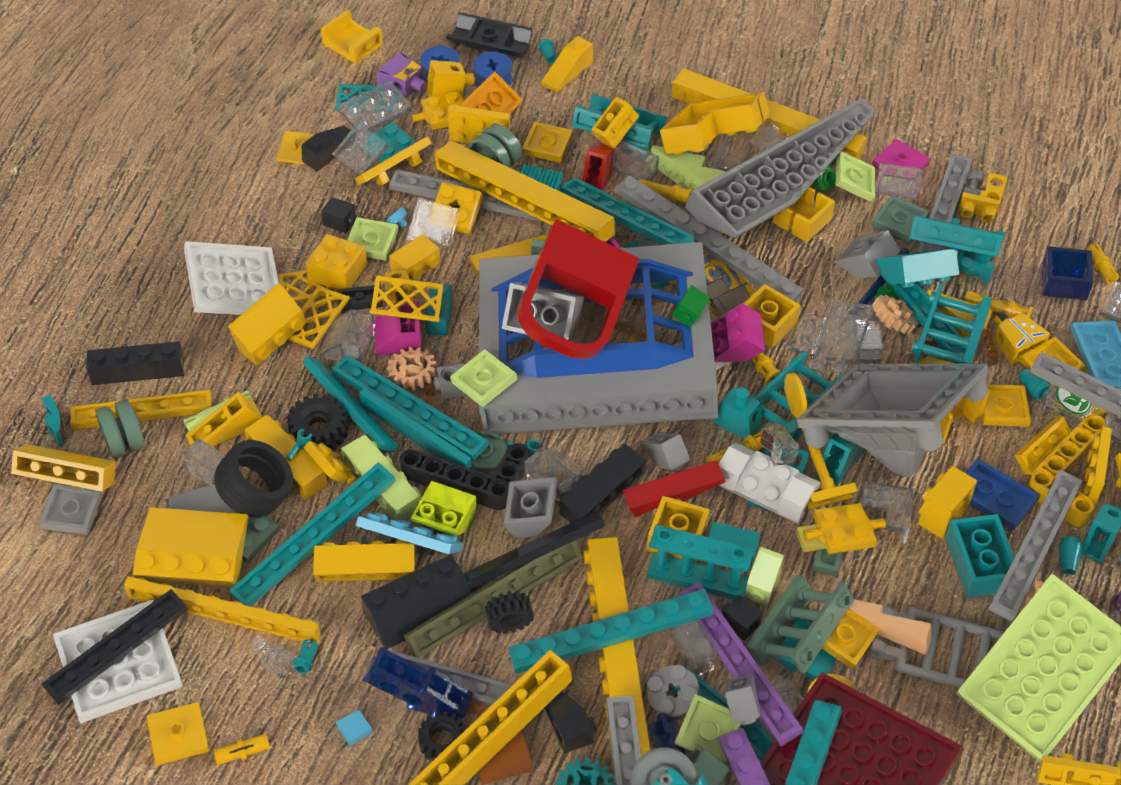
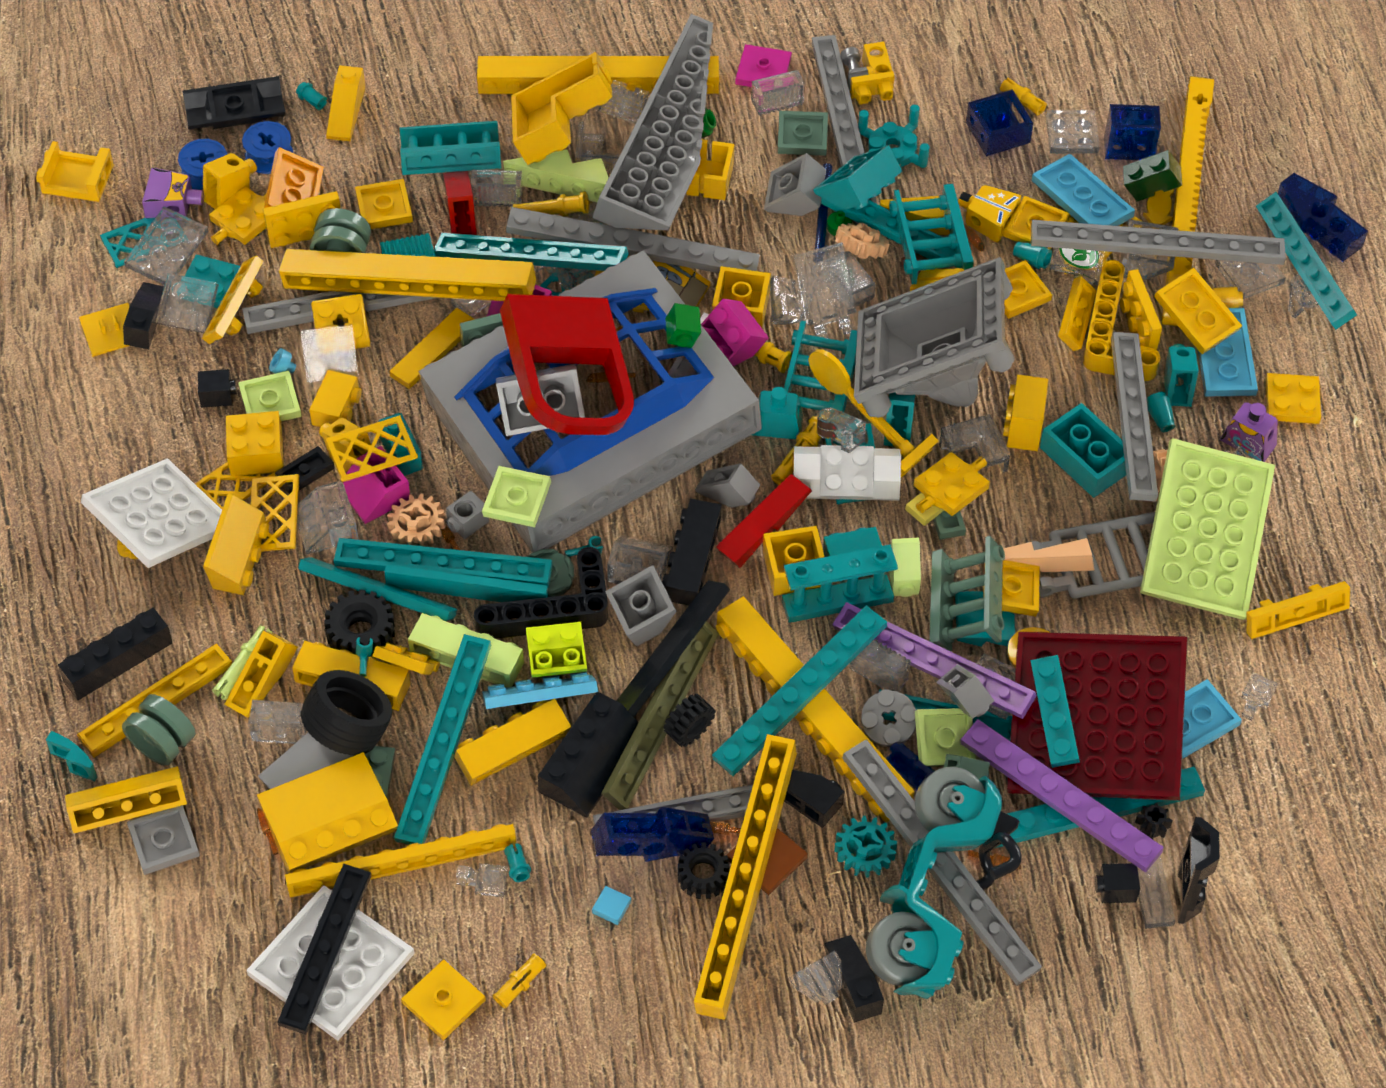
camera: 30 degrees left, 5 degrees up
(614, 122) = (460, 154): yellow brick -> none
(742, 617) = (906, 614): black brick -> none
(855, 176) = (732, 105): yellowish green plate -> none
(956, 236) = (878, 130): teal fence -> none
(998, 306) = (967, 184): yellow pin -> none
(1000, 494) = (1068, 381): blue plate -> none

